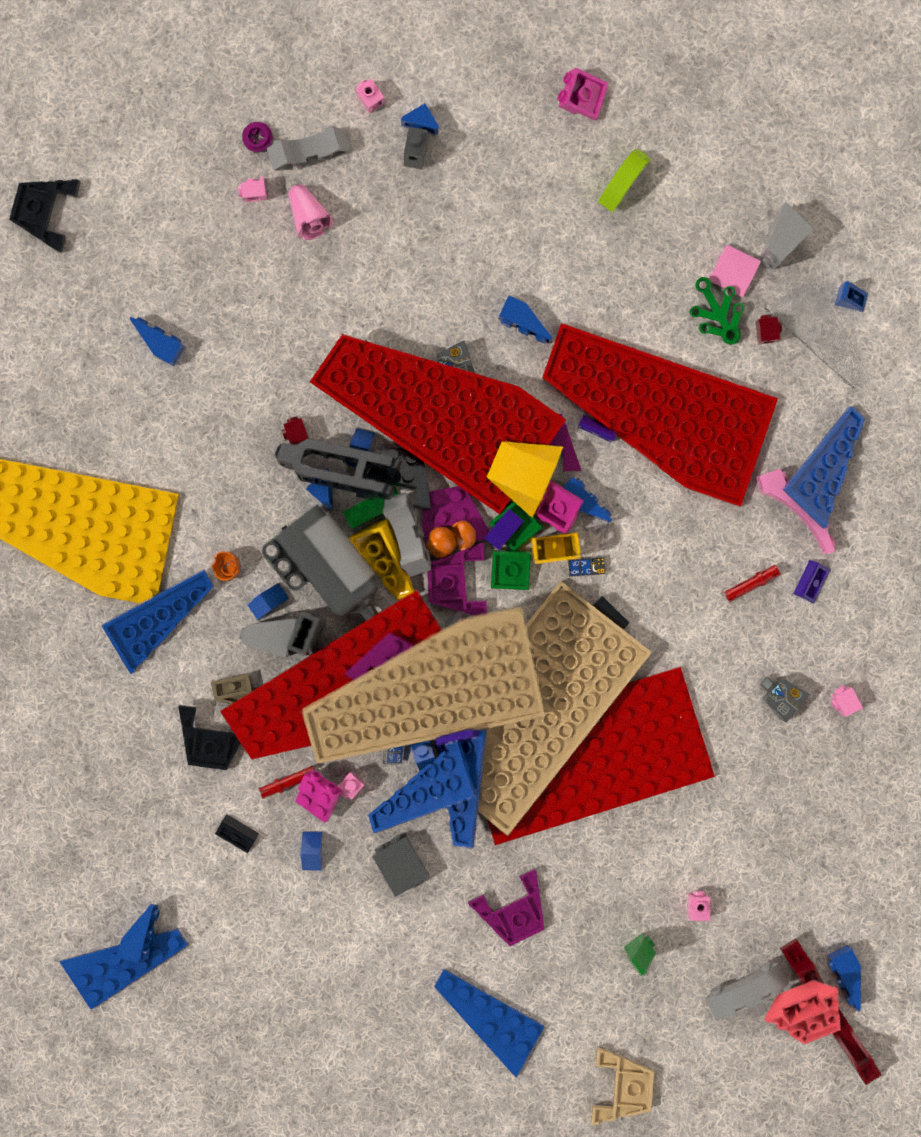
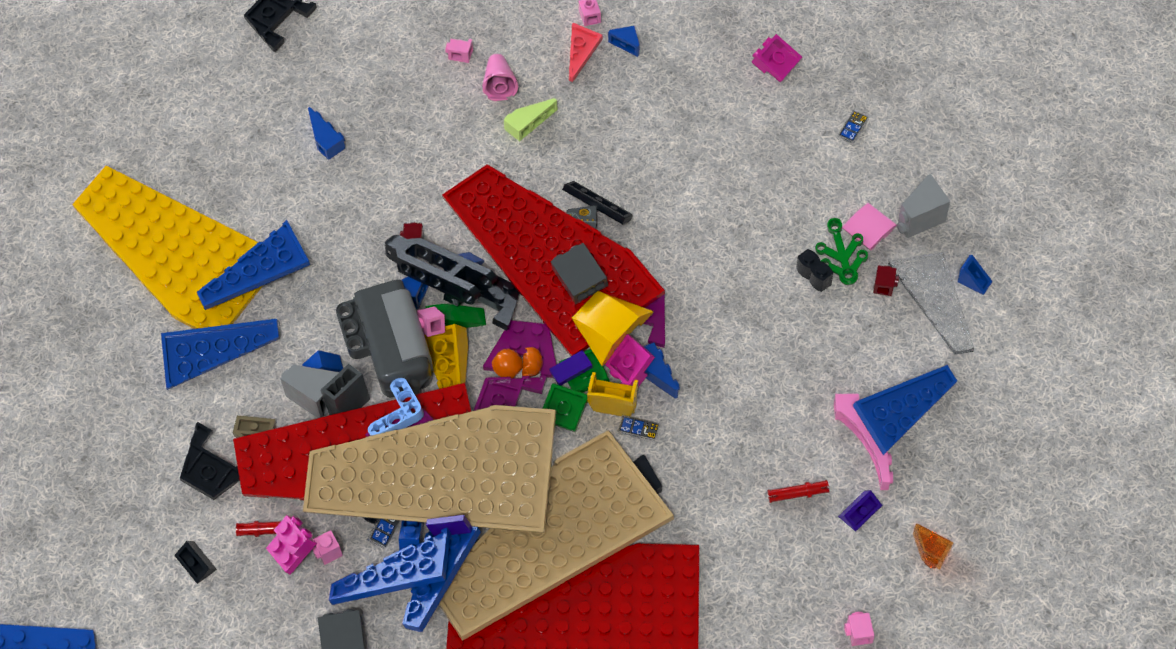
camera: 20 degrees right, 30 degrees down
(136, 940) = (50, 620): blue slope -> none
(164, 516) = (260, 265): none -> blue wing
(231, 571) = (299, 318): orange hair -> none
(252, 130) = (479, 10): magenta gear -> none
(307, 151) = (517, 34): light grey brick -> none
(311, 851) = (259, 600): blue slope -> none
(355, 254) = (527, 118): none -> yellowish green slope
(358, 533) = (431, 321): none -> bright pink brick
(374, 646) = (404, 413): none -> light blue beam
(378, 141) = (582, 47): none -> coral wing
(409, 534) = (478, 343): light grey brick -> none
(416, 146) = (617, 51): dark grey torso -> none
(461, 331) = (593, 199): none -> black tile
(478, 430) = (579, 273): none -> dark grey brick
(519, 315) = (655, 205): blue slope -> none
(596, 428) = (692, 316): dark purple slope -> none
(624, 179) = (787, 125): lime arch -> none
(676, 417) = (773, 329): red wing -> none
(684, 154) = (853, 127): none -> tile
(694, 339) = (814, 270): none -> black brick
(783, 697) = (795, 604): dark grey torso -> none
(887, 601) = (931, 547): none -> clear orange slope

